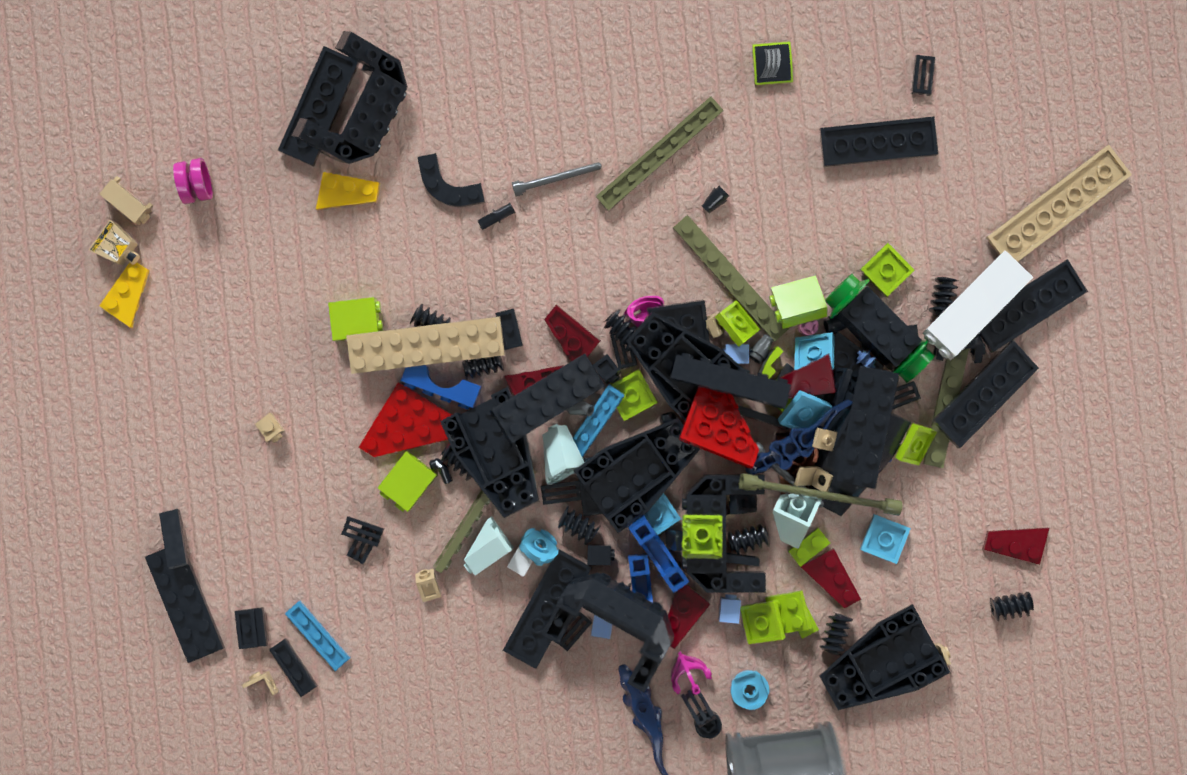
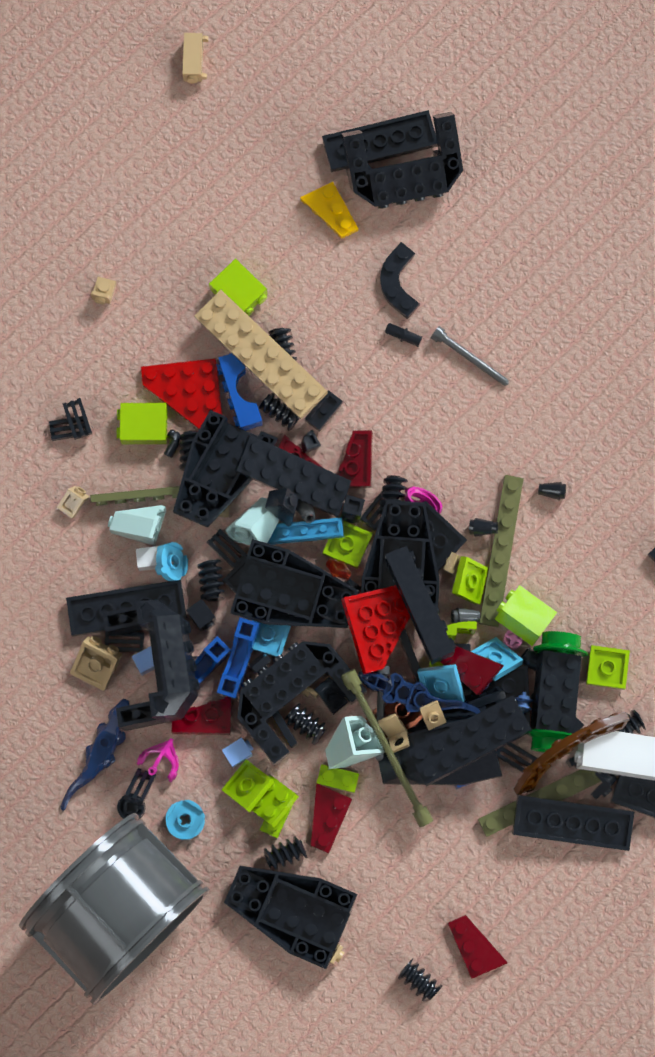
camera: 45 degrees right, 10 degrees down
(115, 244) = (154, 73): tan torso -> none
(125, 294) = (124, 108): yellow wing -> none
(192, 181) = (248, 91): dark pink wheel -> none
(526, 360) = (310, 442): none -> black tile
(564, 425) = (282, 504): none -> black slope
(573, 666) = (96, 662): none -> tan plate
(648, 419) = (338, 569): none -> clear red tile
(659, 153) = (553, 420): olive plate -> none
(702, 278) = (482, 527): none -> black cone
(702, 536) = (278, 676): lime slope -> none
(739, 354) = (447, 600): light blue brick -> none
(885, 538) = (392, 834): medium azure plate -> none
(915, 444) = (487, 796): lime plate -> none
(926, 396) = (560, 748): none -> reddish brown plate

